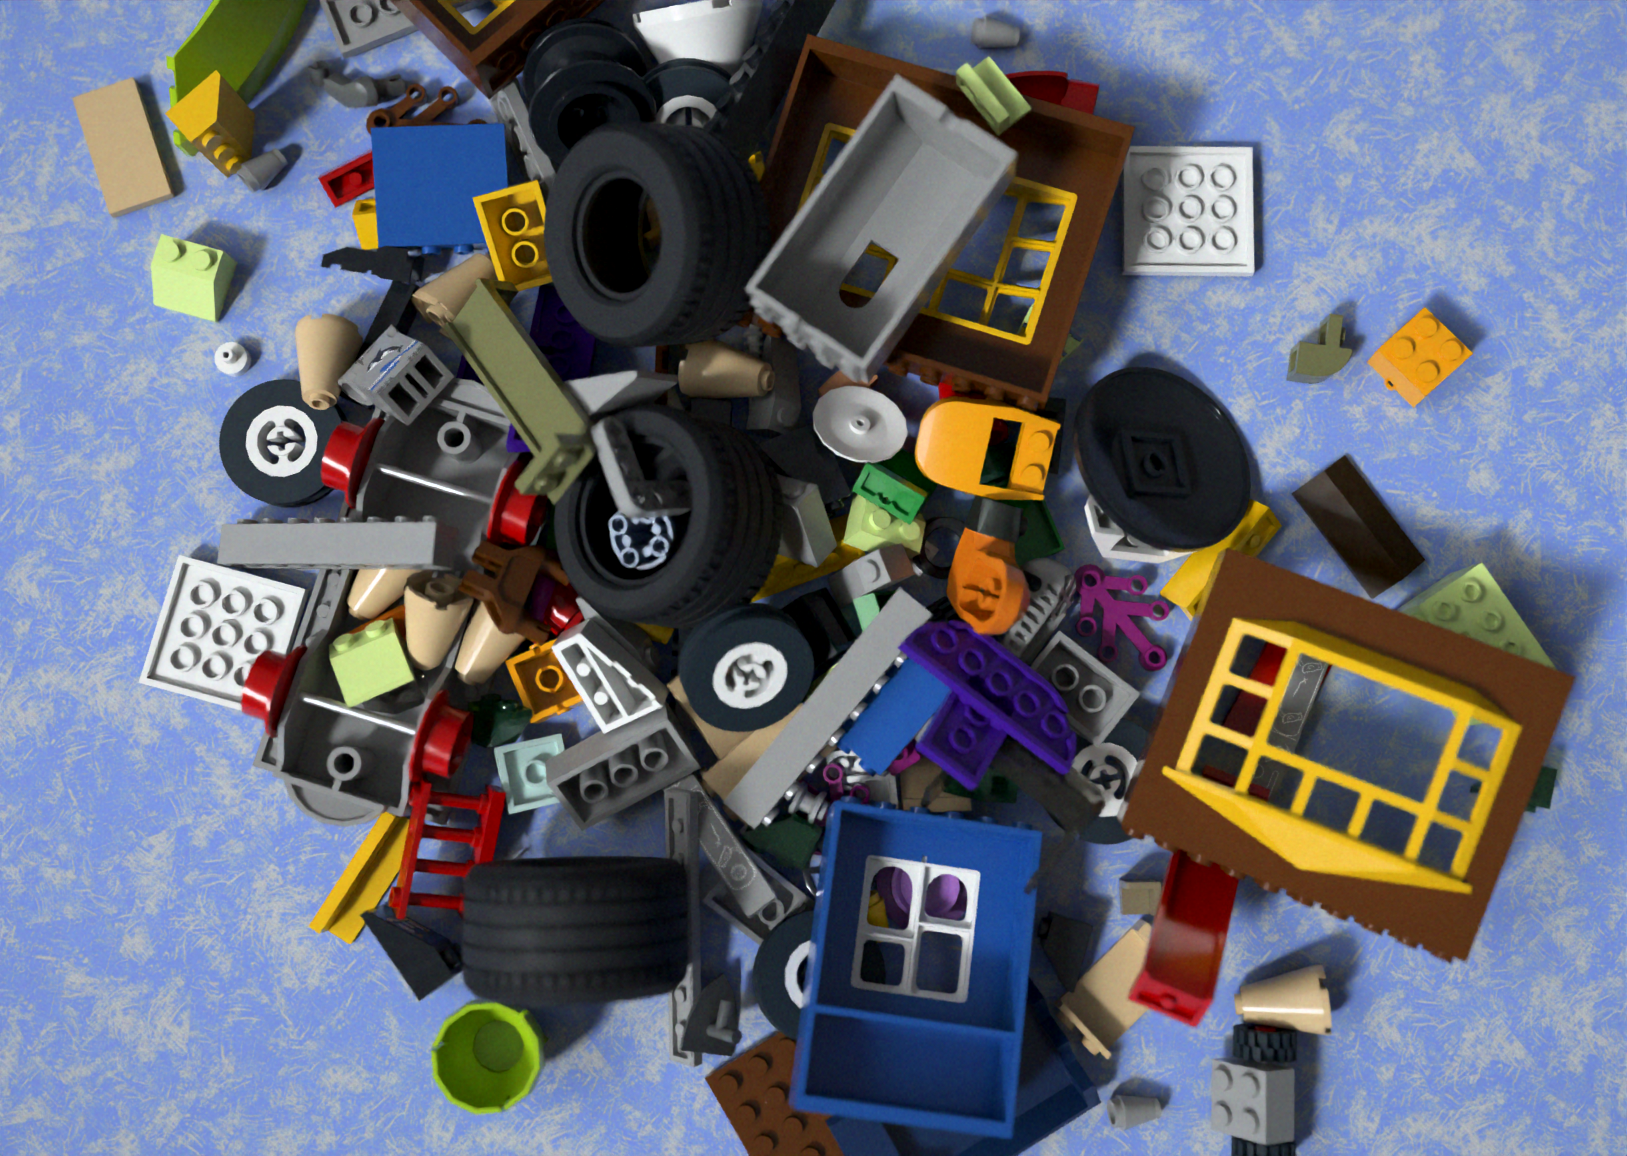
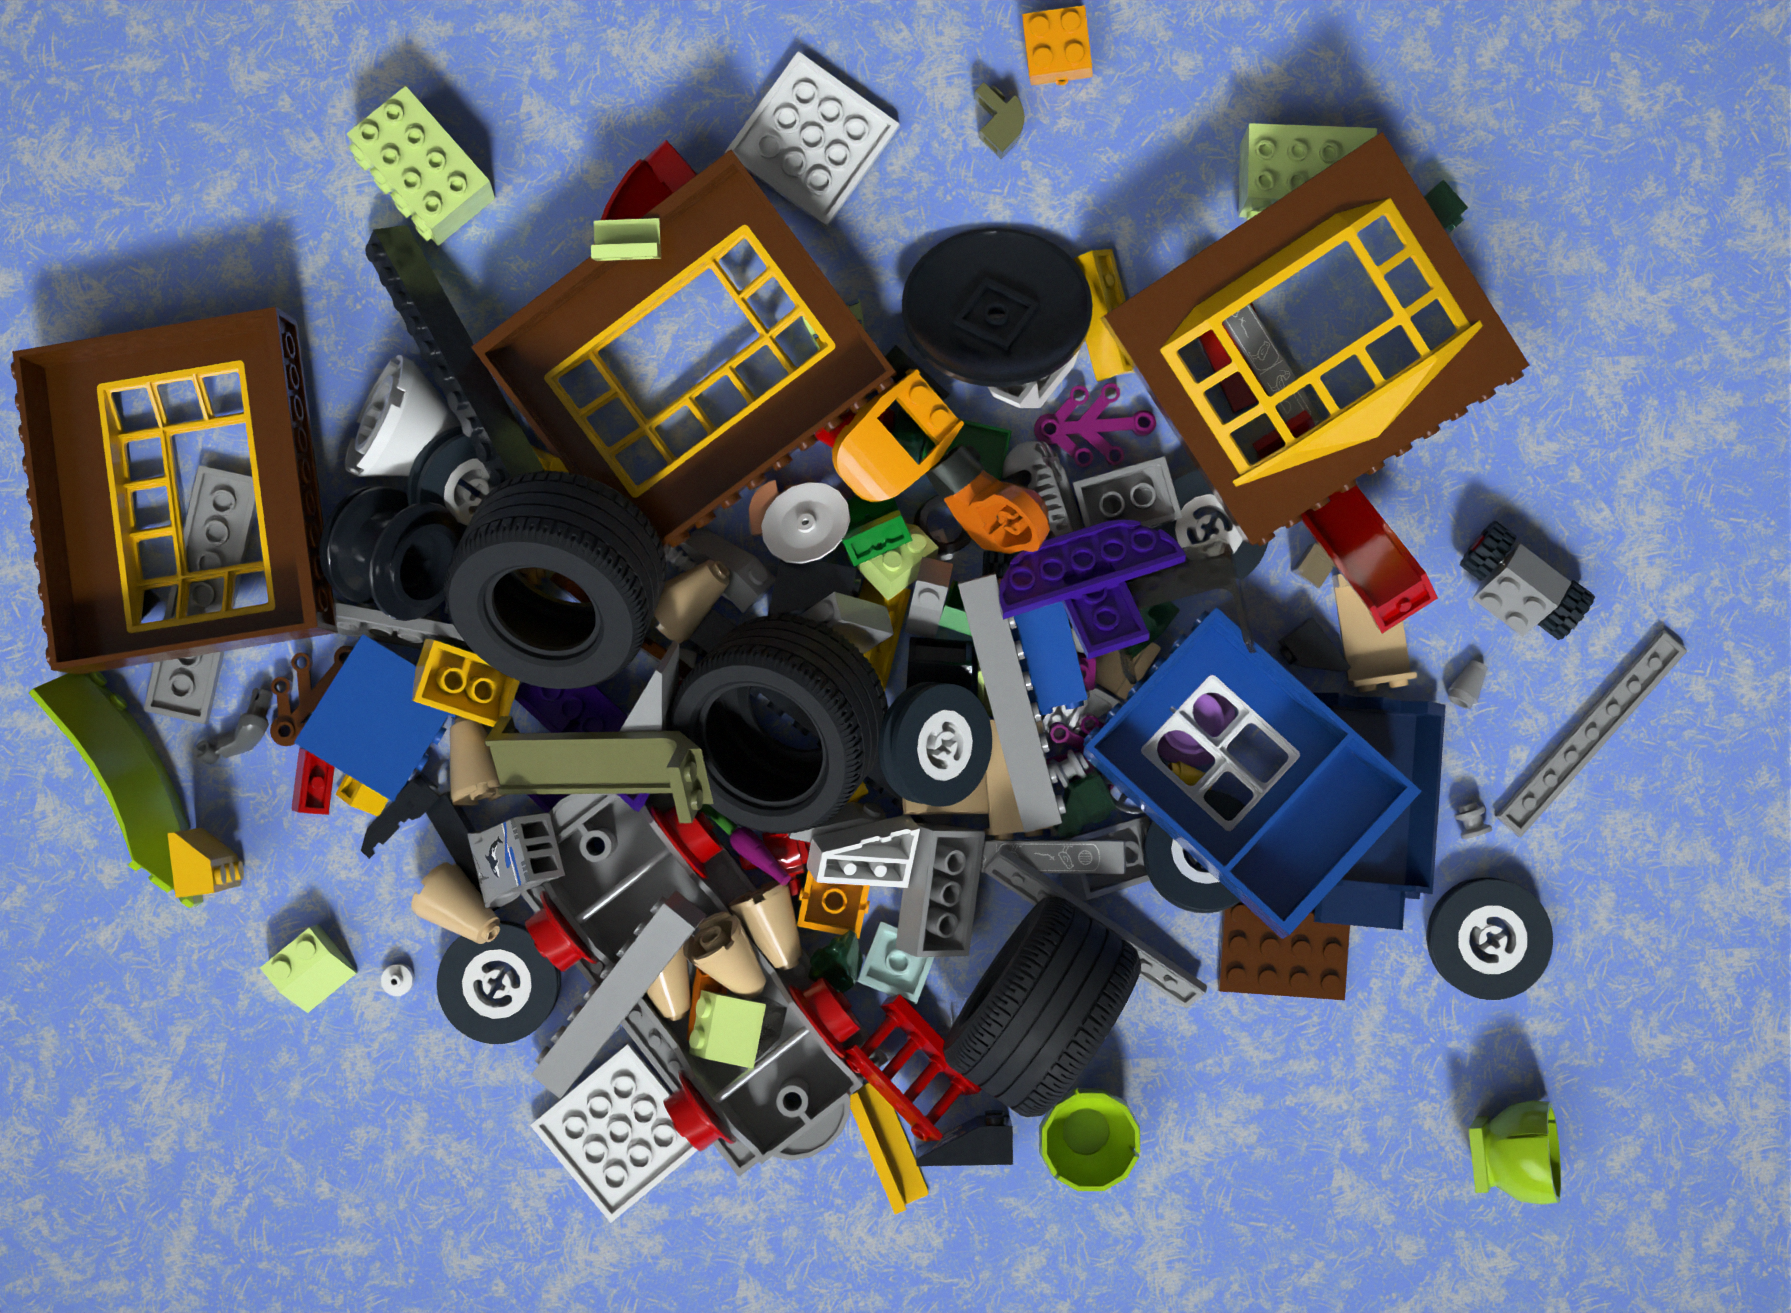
camera: 55 degrees left, 5 degrees up
(123, 147) = (157, 951): tan tile -> none
(261, 170) = (257, 853): light grey cone -> none
(510, 586) = (746, 880): reddish brown connector -> none
(613, 446) = (702, 726): light grey beam -> none
(646, 541) = (780, 749): sand blue cone -> none
(712, 1021) = (1181, 955): dark grey shield -> none
(911, 186) = (662, 357): light grey panel -> none
(993, 33) = (557, 188): light grey cone -> none
(1288, 1001) = (1470, 510): tan cone -> none
(1358, 527) = (1154, 189): dark brown slope -> none

